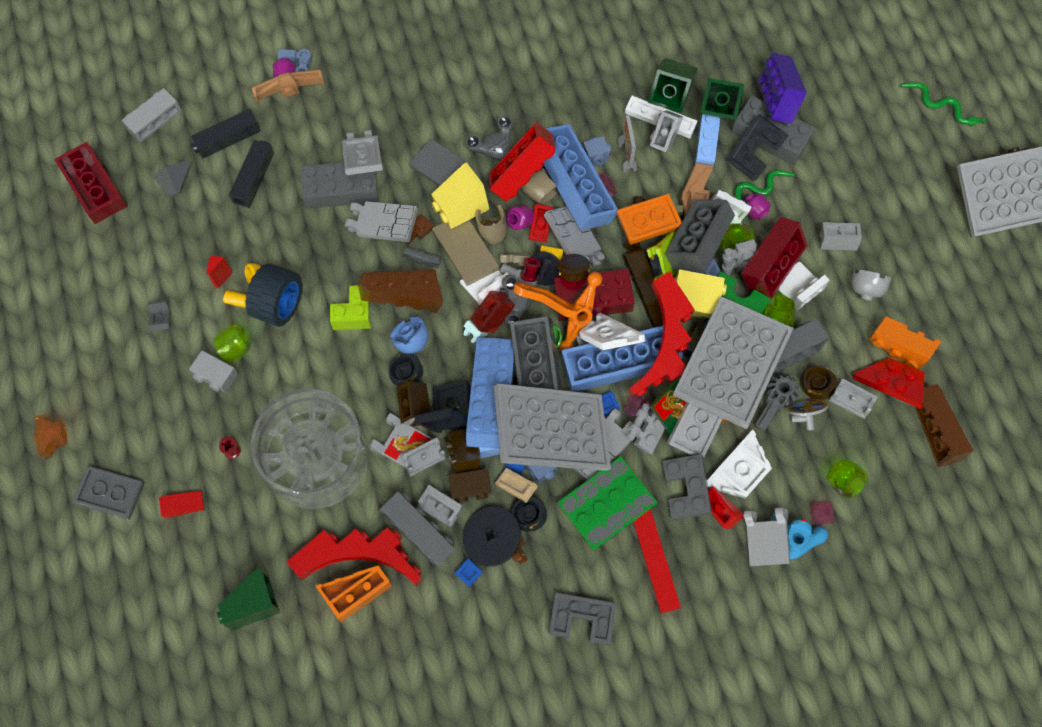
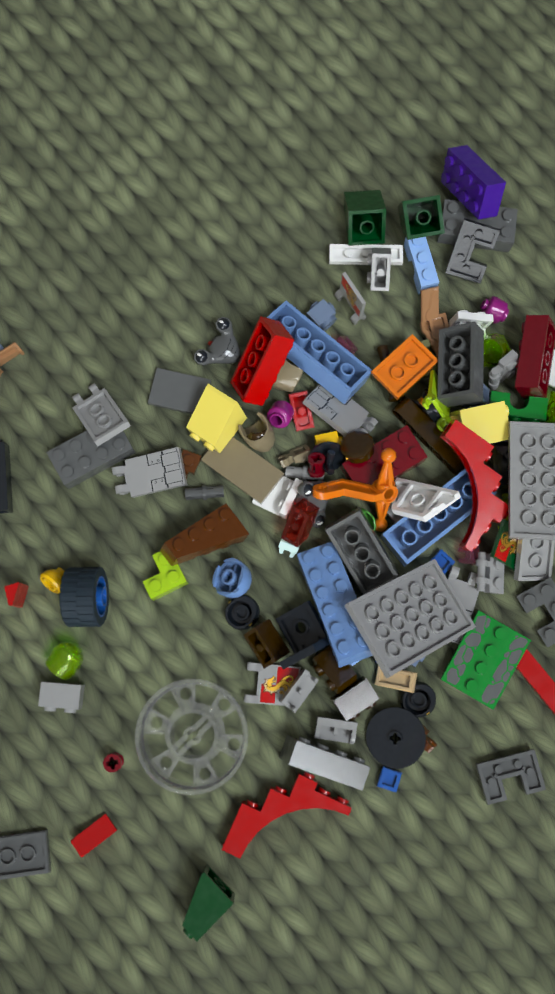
camera: 25 degrees left, 10 degrees up
(234, 298) = (47, 611): yellow cylinder -> none
(354, 592) = (296, 848): orange wedge -> none
(769, 182) = (484, 292): green animal -> none

